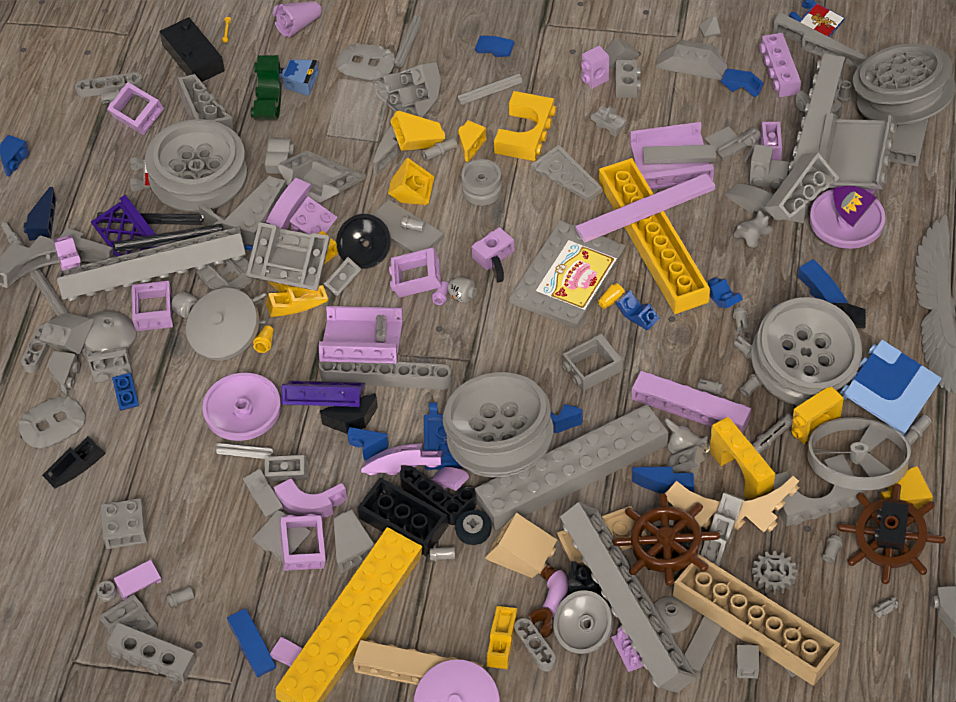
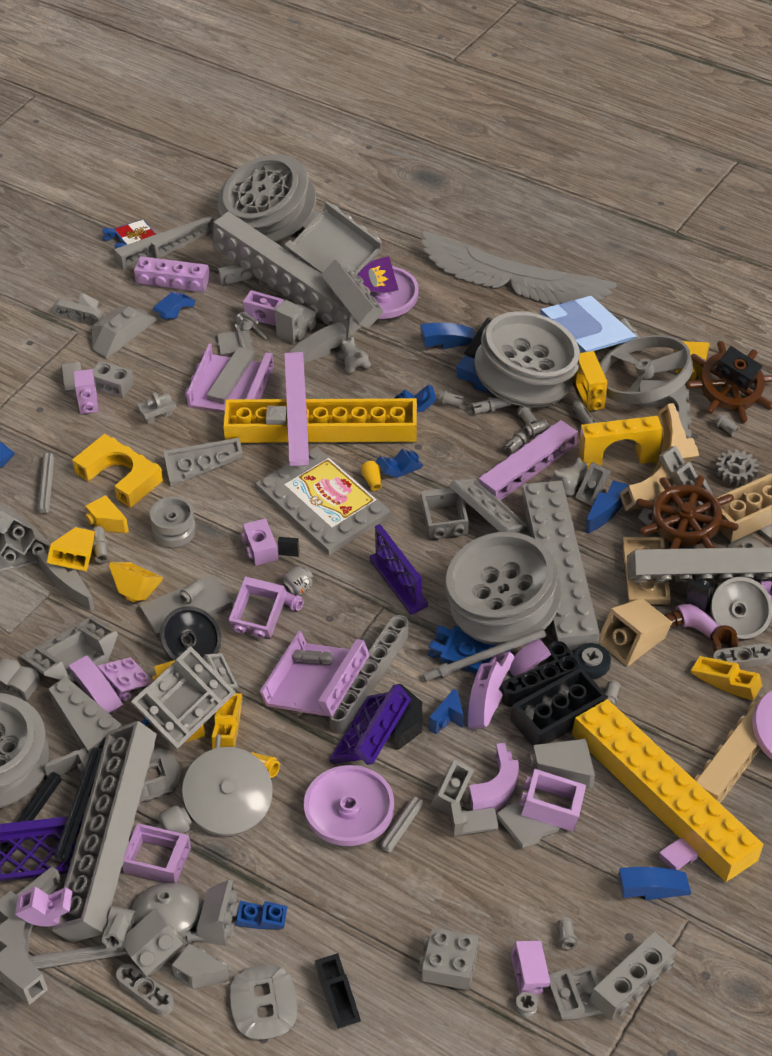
camera: 70 degrees left, 5 degrees down
(77, 305) = (118, 924): none -> light grey piece
(414, 425) = (446, 669): none -> light grey bar
(503, 347) = (397, 572): none -> dark purple fence
(610, 388) = (488, 506): none -> light grey tile
(628, 196) = (276, 415): none -> light grey tile
(694, 24) = (65, 309): none -> light grey beam
(739, 396) = (531, 430): none -> light grey pin

